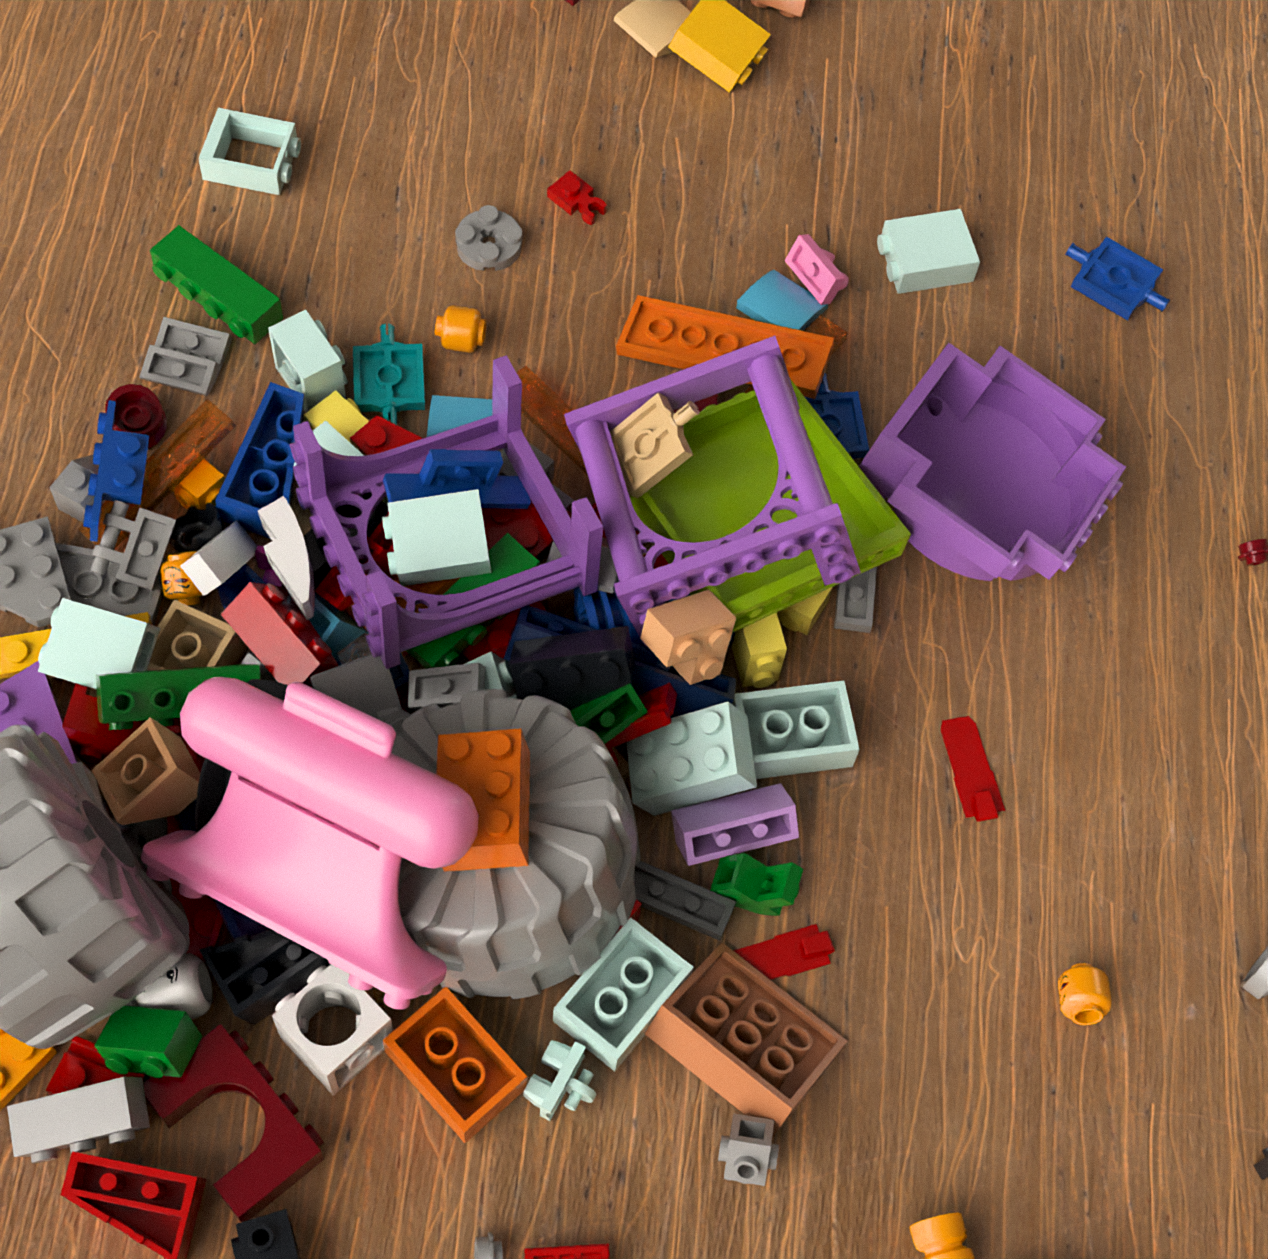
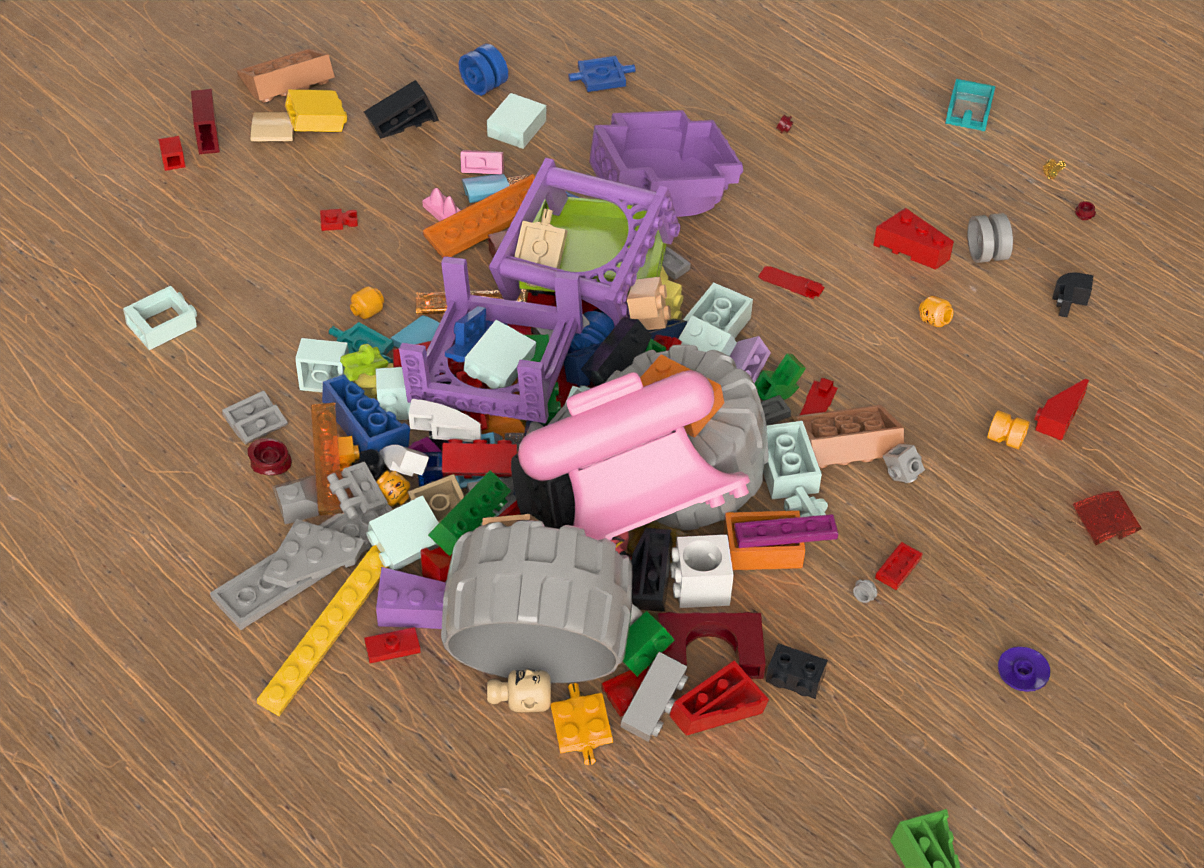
camera: 45 degrees left, 15 degrees down
(120, 471) = (308, 467): blue bracket -> none
(216, 285) = (229, 376): green brick -> none
(329, 399) = (363, 361): none -> lime hips
(471, 1087) = (786, 531): none -> magenta tile
(485, 223) = (333, 261): light grey plate -> none
(702, 283) = (439, 205): none -> bright pink tile
(813, 122) = (401, 110): none -> black wedge
(969, 150) = (483, 69): none -> blue wheel
(1197, 868) = (914, 237): none -> red wedge

